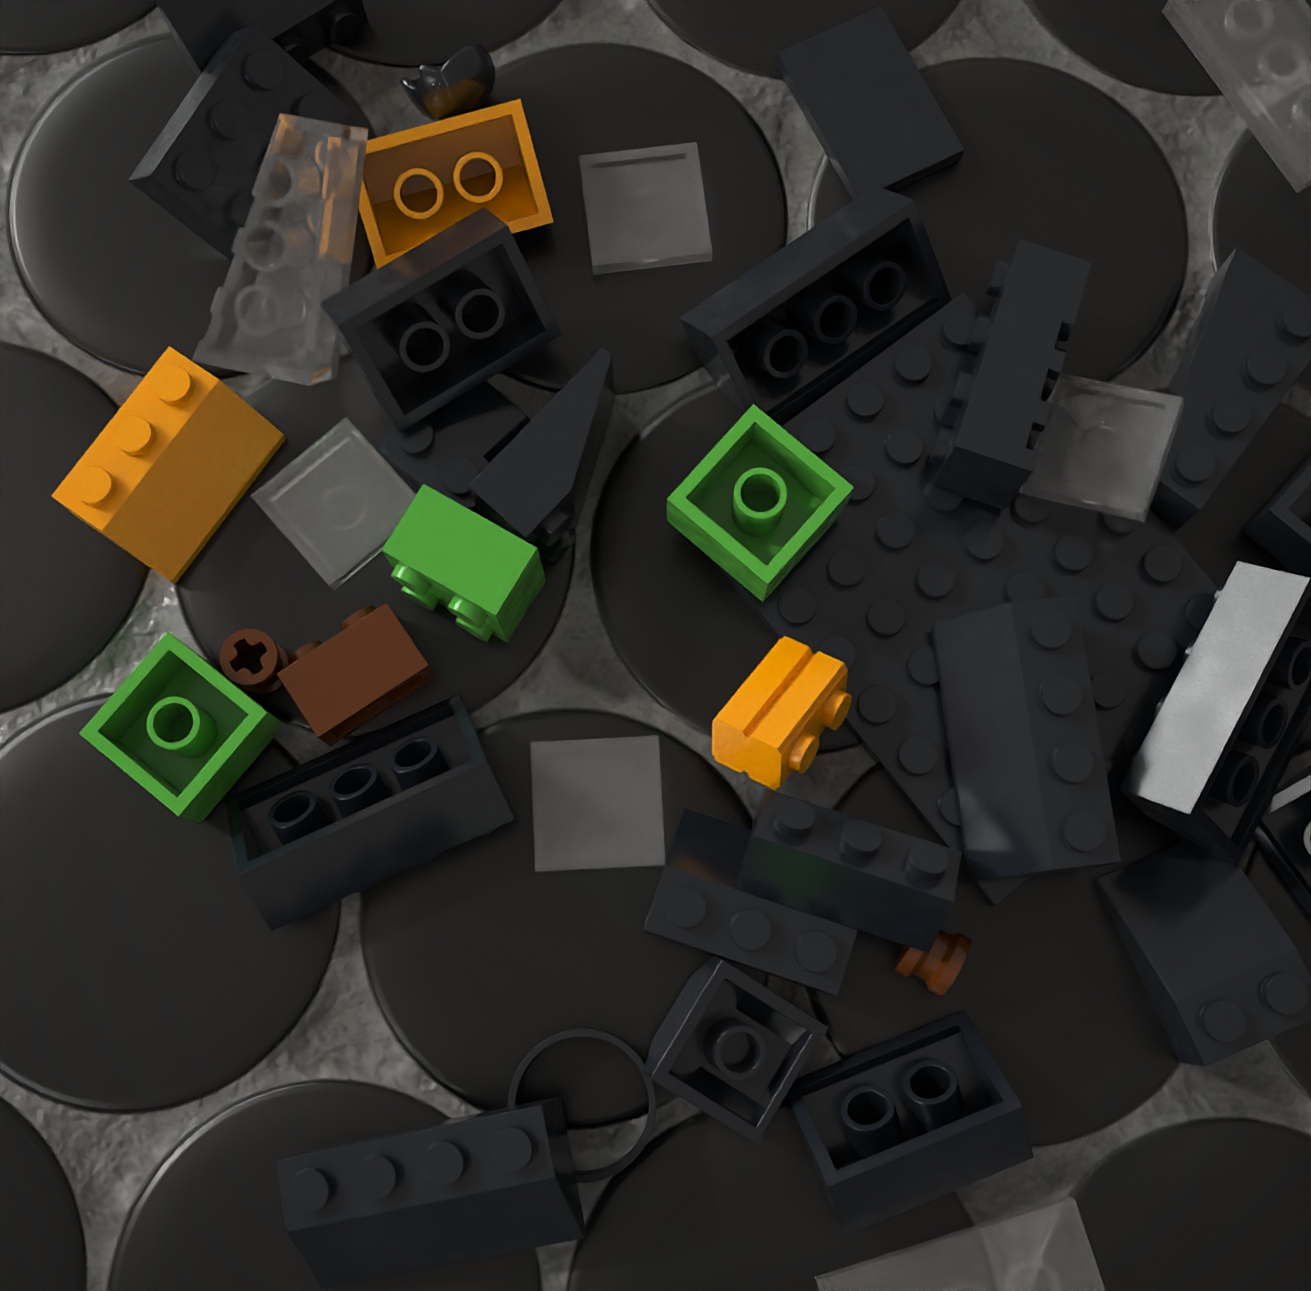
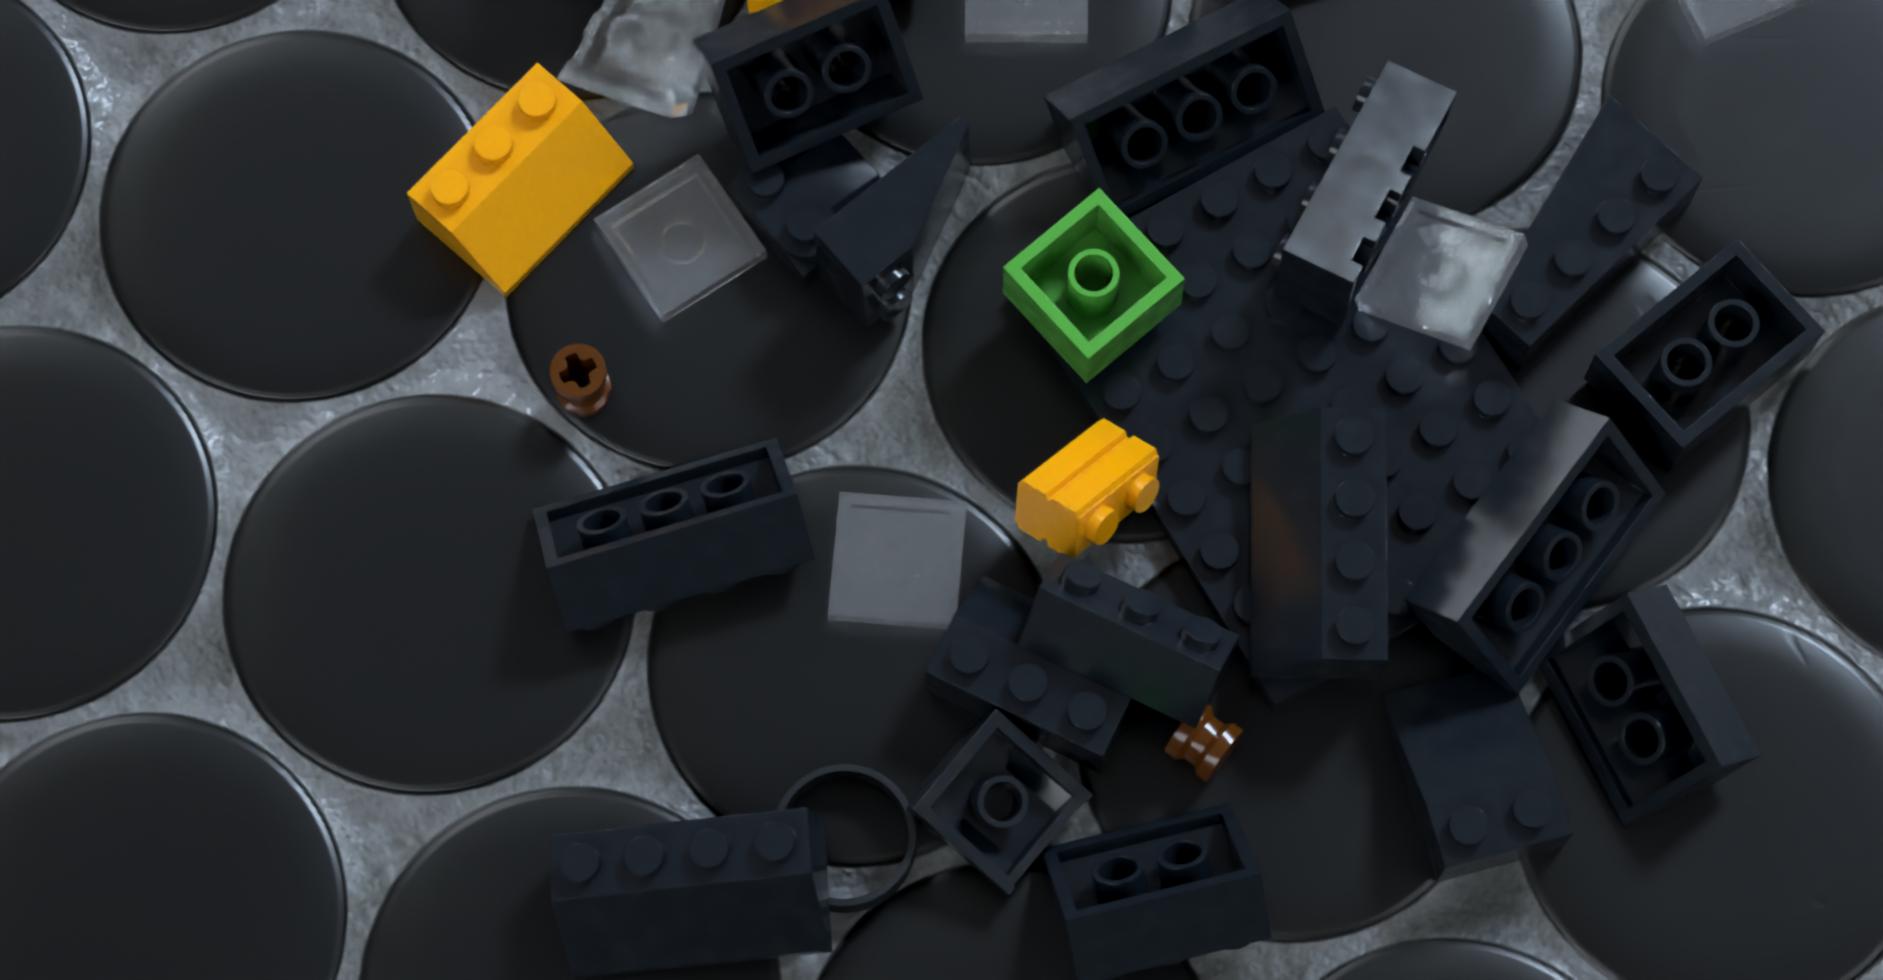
camera: 10 degrees right, 5 degrees down
(182, 729) = (506, 431): bright green brick -> none
(355, 673) = (678, 402): reddish brown brick -> none
(464, 564) = (799, 311): bright green brick -> none

